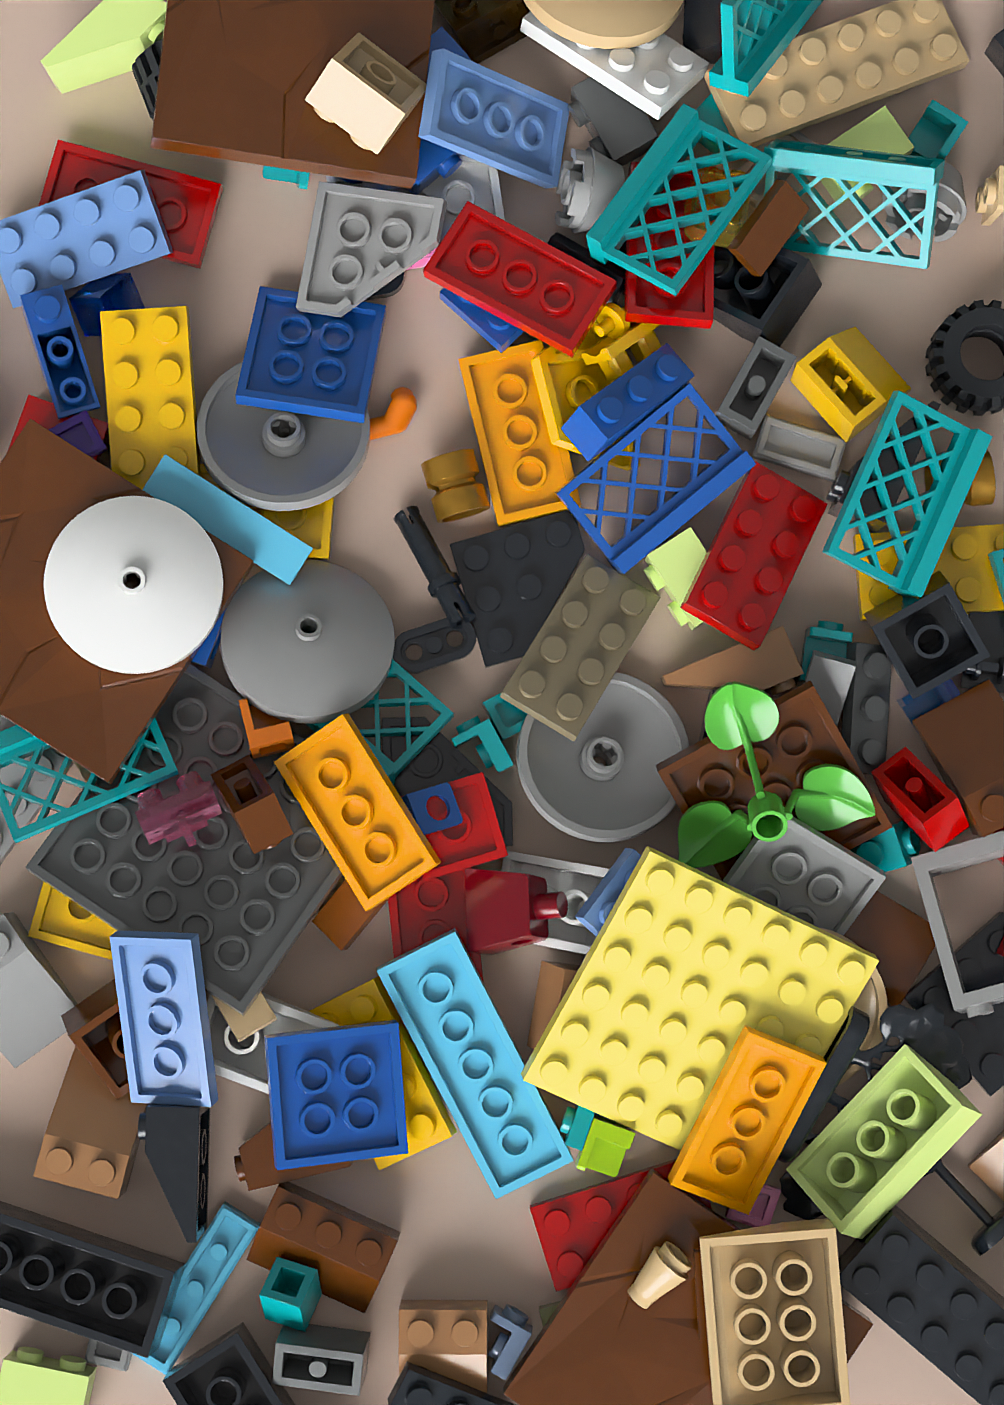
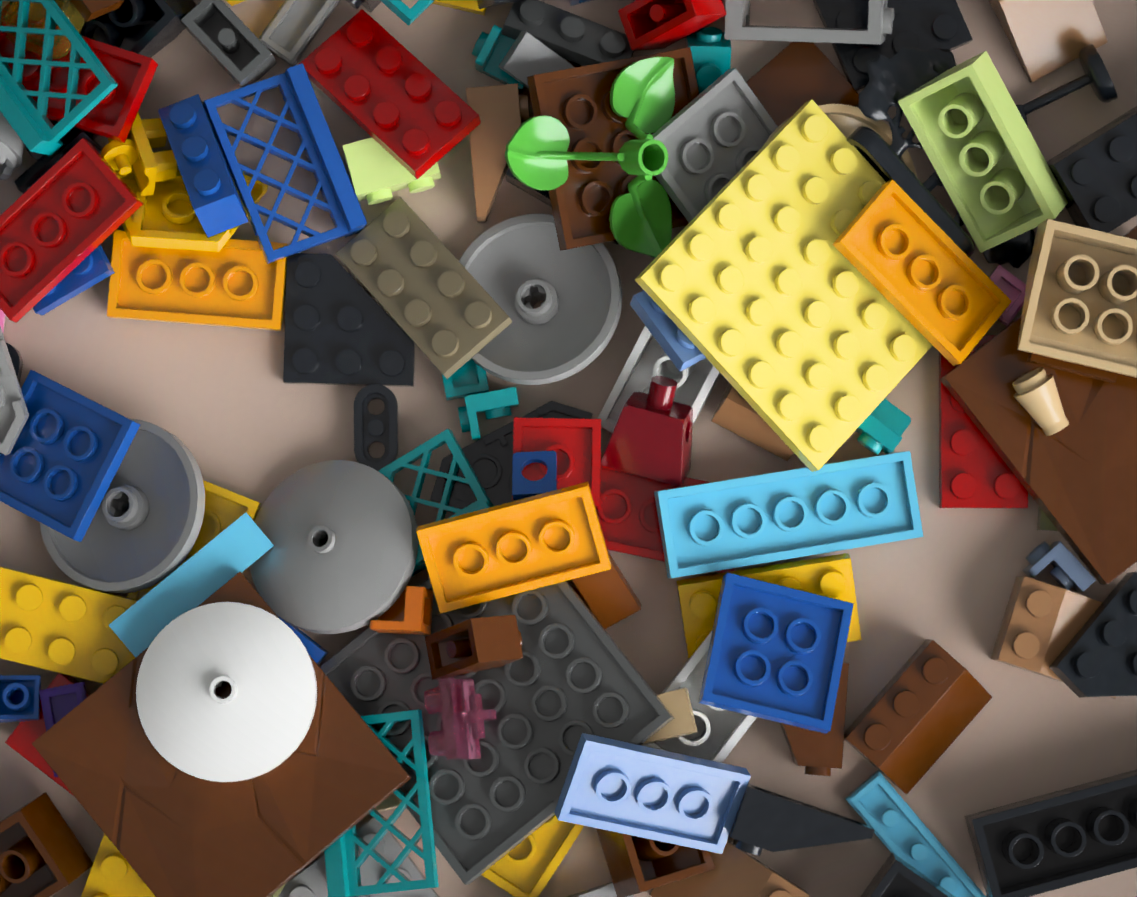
camera: 85 degrees left, 0 degrees up
(290, 1294) = (952, 759): teal brick -> none
(322, 1359) = (1021, 749): dark grey brick -> none
(396, 416) = (141, 392): orange arm -> none
(442, 582) = (318, 400): black pin -> none
(455, 485) = (229, 357): pearl gold wheel -> none
(605, 1146) = (906, 415): lime panel -> none

